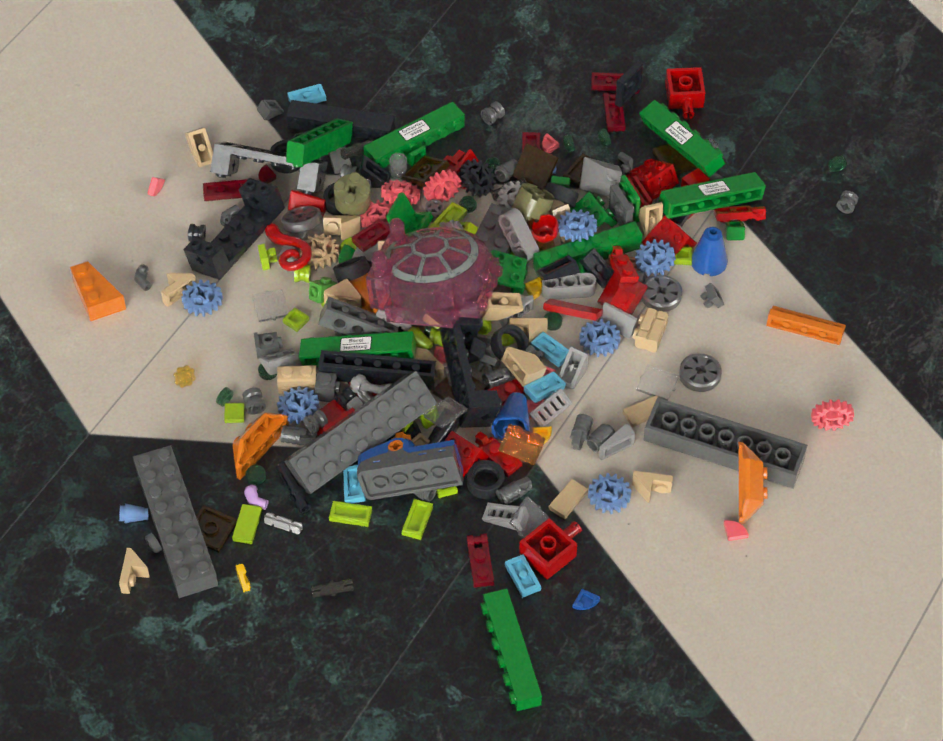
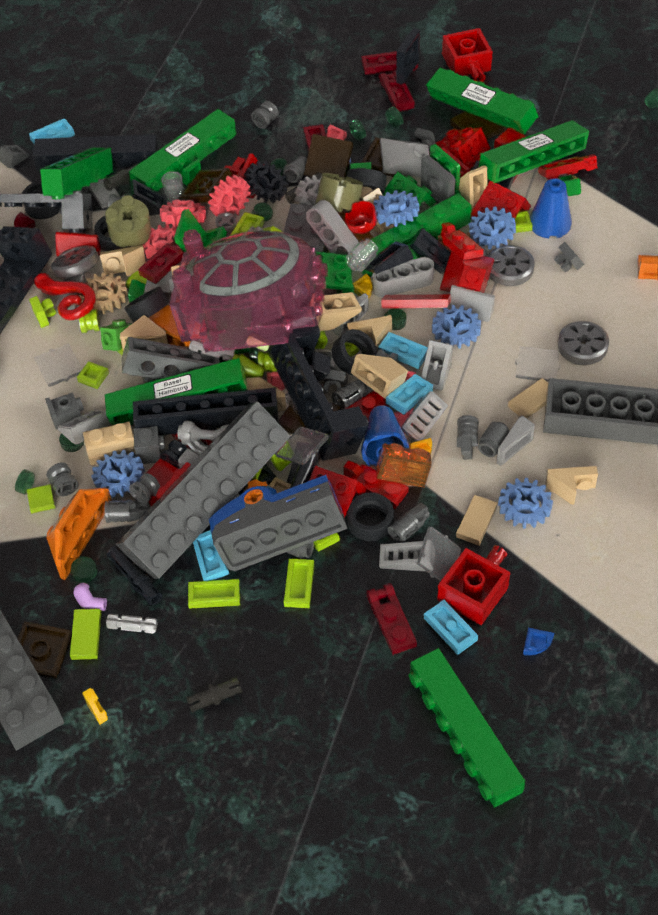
camera: 10 degrees left, 0 degrees up
(536, 262) = (362, 255): none -> clear brick
(651, 329) = (512, 307): tan brick -> none

